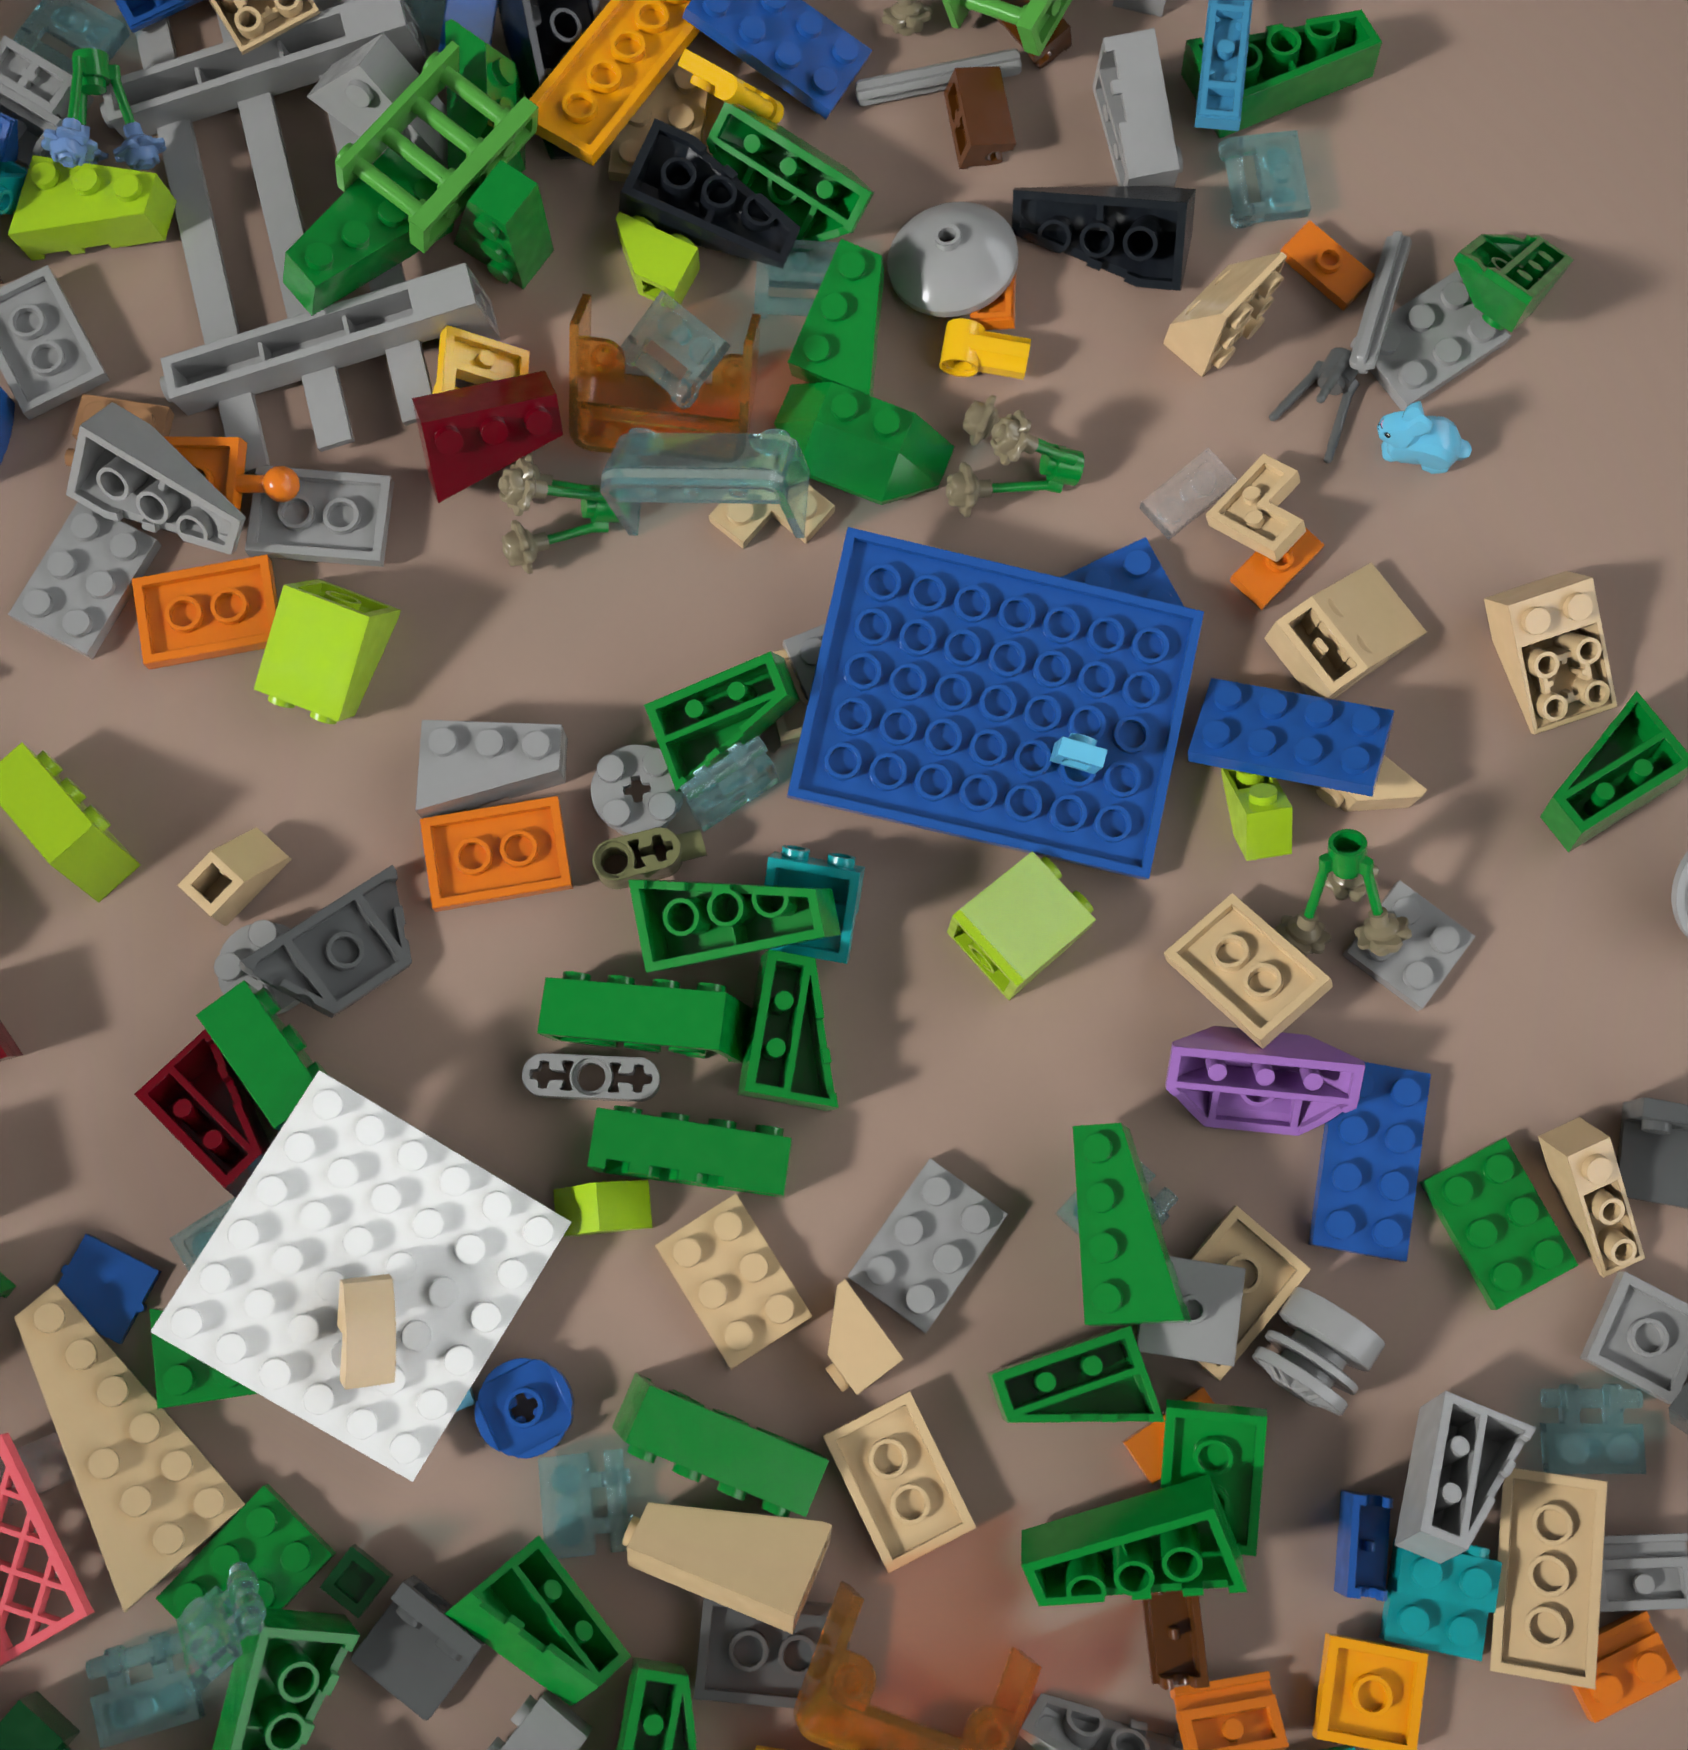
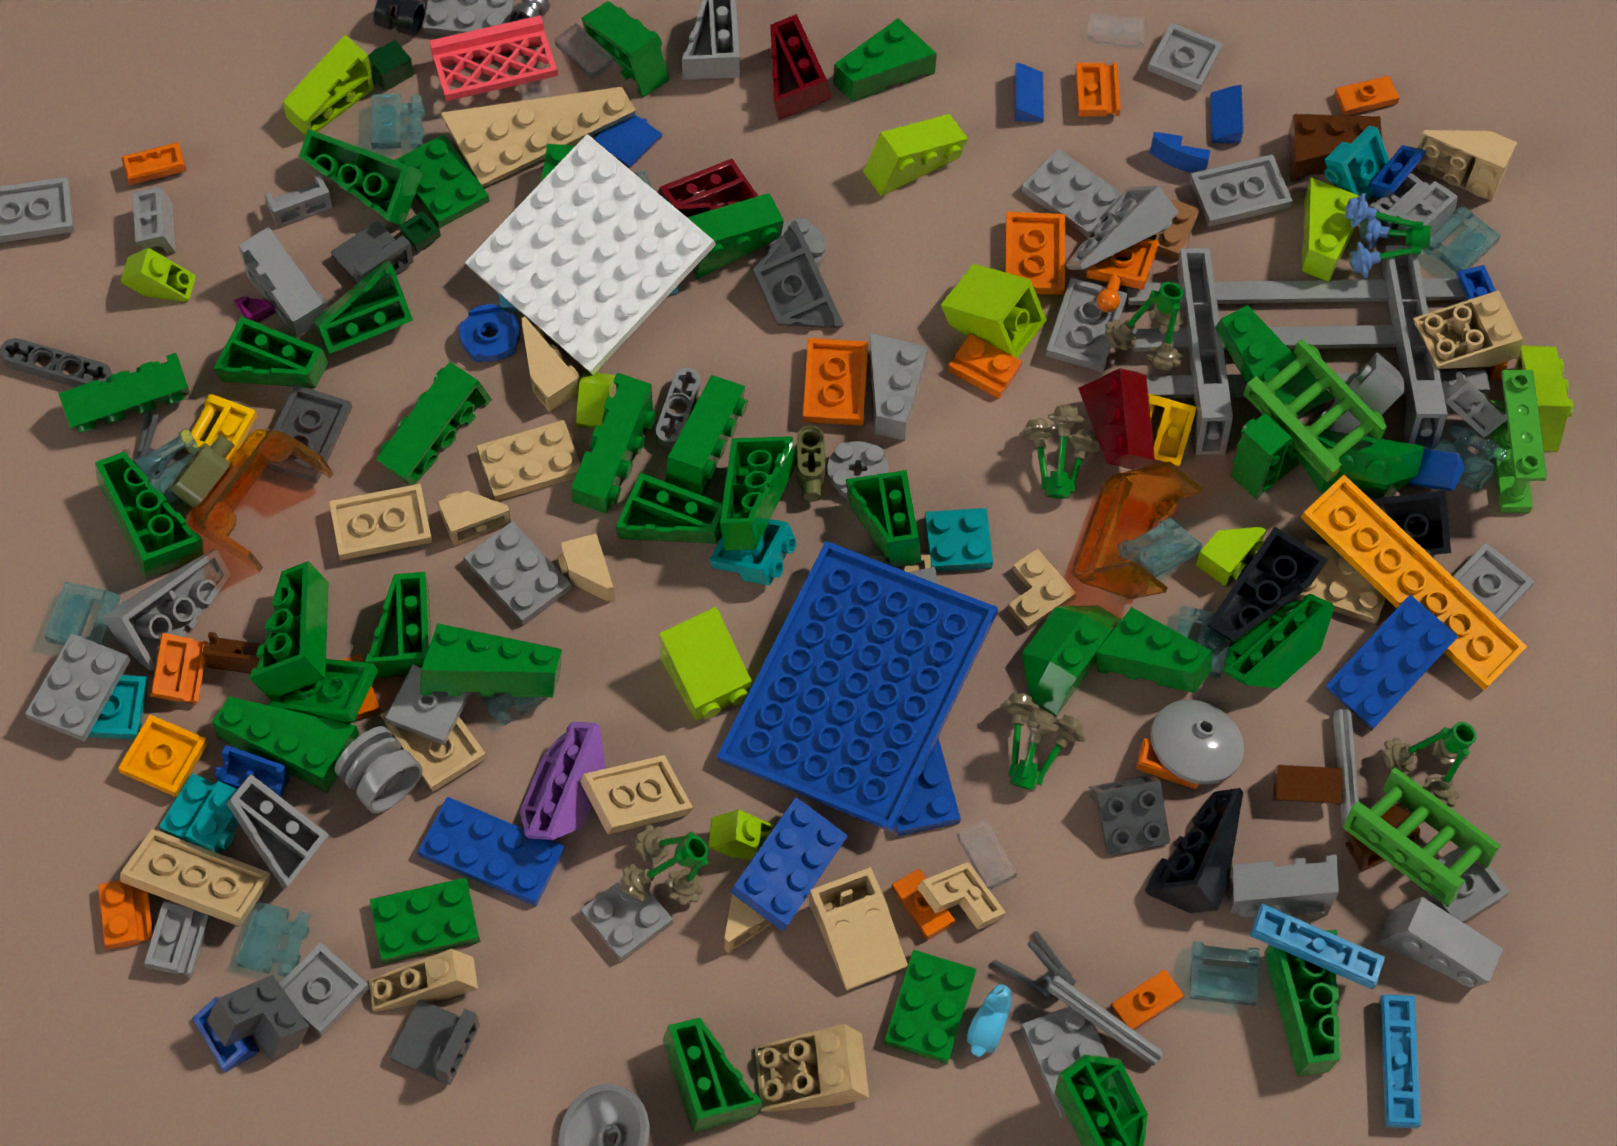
camera: 105 degrees right, 15 degrees down
(217, 1624) = (418, 150): clear light blue plate -> none
(234, 874) = (856, 235): tan slope -> none
(300, 394) = (1165, 317): none -> dark tan plant
(368, 1331) = (554, 240): tan slope -> none
(418, 648) = (984, 366): none -> orange plate
(568, 1502) = (422, 344): clear light blue plate -> none
(580, 1293) = (550, 377): none -> tan slope
(706, 470) = (1049, 535): clear light blue windscreen -> none
(716, 626) = (959, 539): none -> teal plate
(729, 87) = (1356, 616): yellow plate -> none
(729, 783) = (844, 514): clear light blue plate -> none
(731, 1557) = (362, 424): tan slope -> none
(897, 1141) = (586, 566): none -> tan slope
(973, 350) = (1123, 742): yellow piece -> none
(1072, 323) = (1131, 814): none -> dark grey bracket
(1079, 753) = (807, 717): medium azure plate -> none
(1225, 312) = (1111, 902): tan slope -> none
(1301, 1513) = (294, 739): none -> green wedge
(1414, 525) = (930, 1006): none -> green plate

